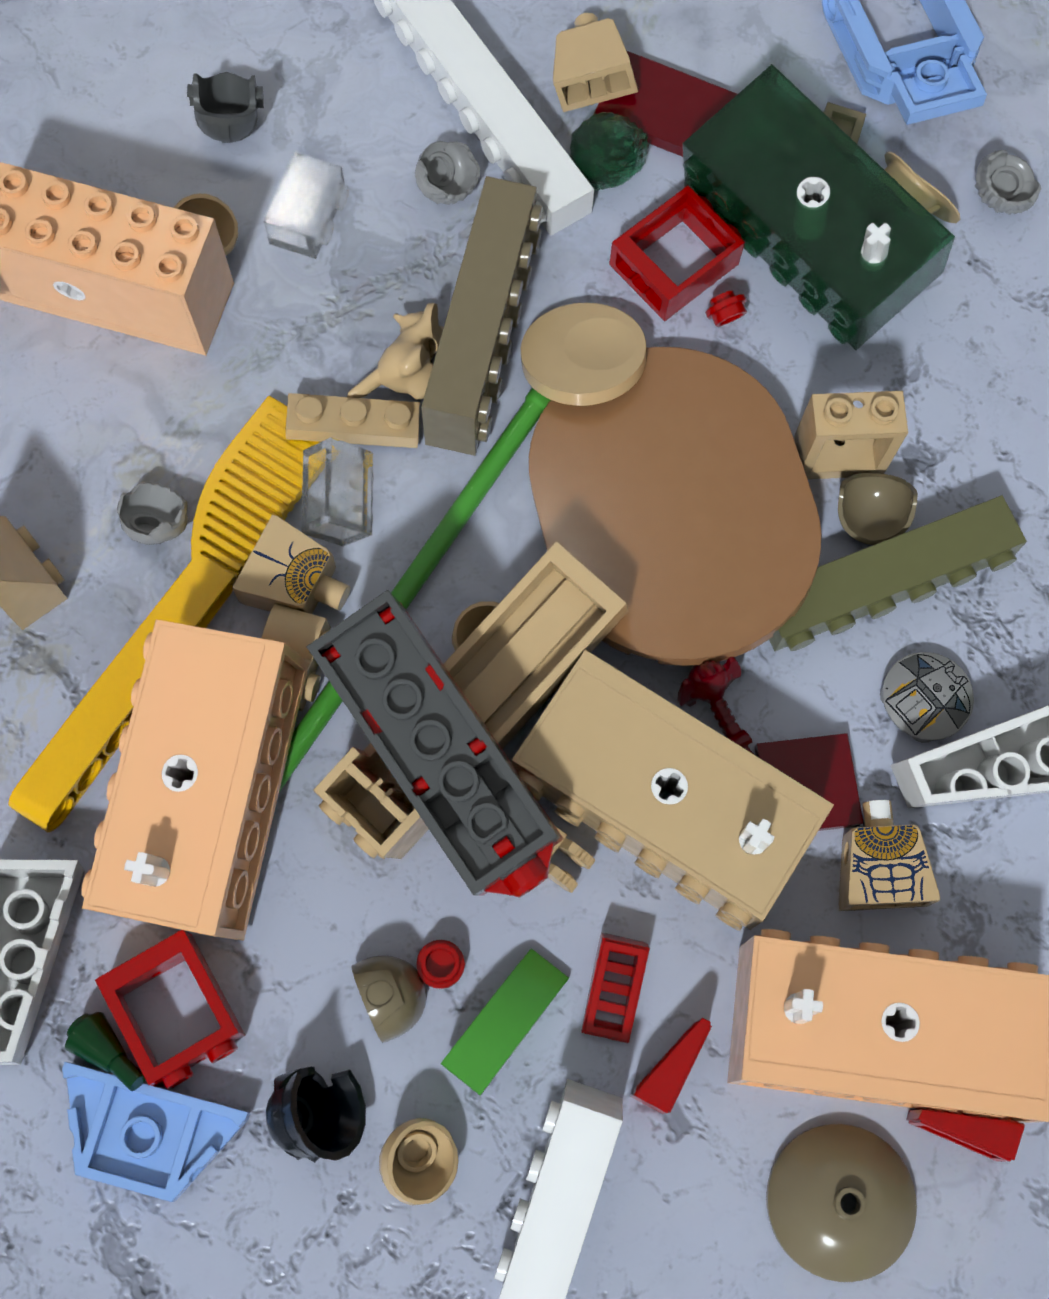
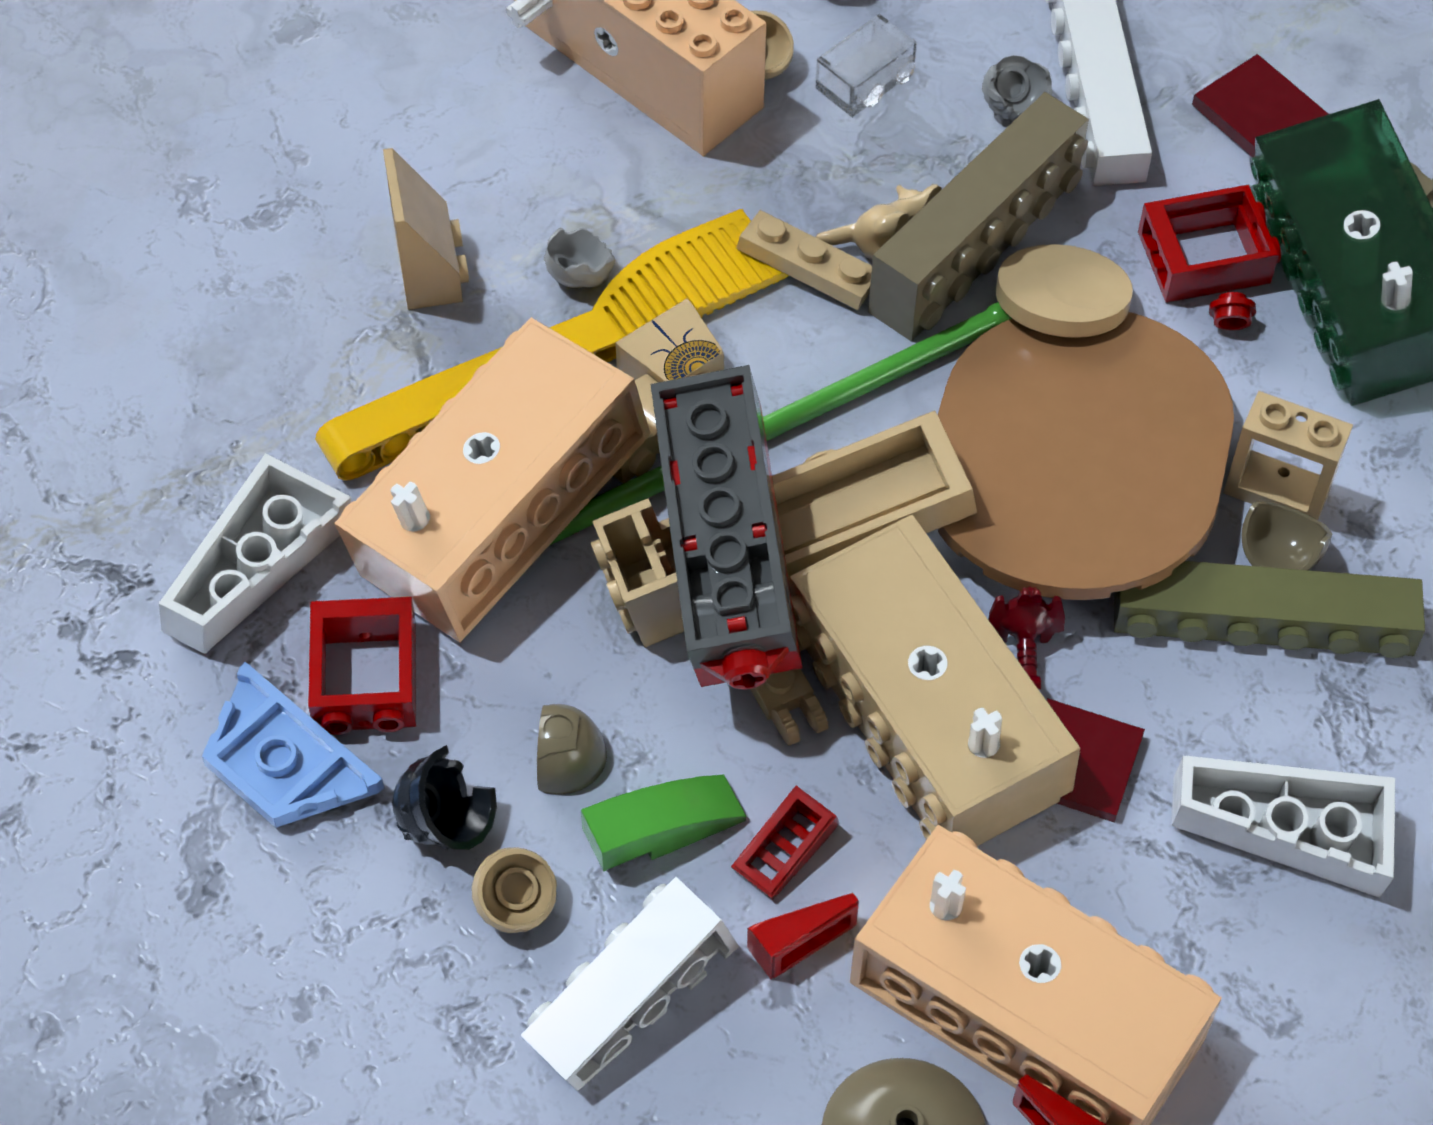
camera: 30 degrees right, 15 degrees down
(96, 1043) = (281, 659): dark green cone -> none
(337, 492) = (759, 308): clear brick -> none
(440, 964) = (630, 746): red plate -> none
(591, 64) = (1211, 50): tan torso -> none
(608, 149) = (1189, 130): clear green hair -> none
(885, 864) = (1113, 858): torso -> none
(927, 696) = (1249, 728): light grey dish -> none

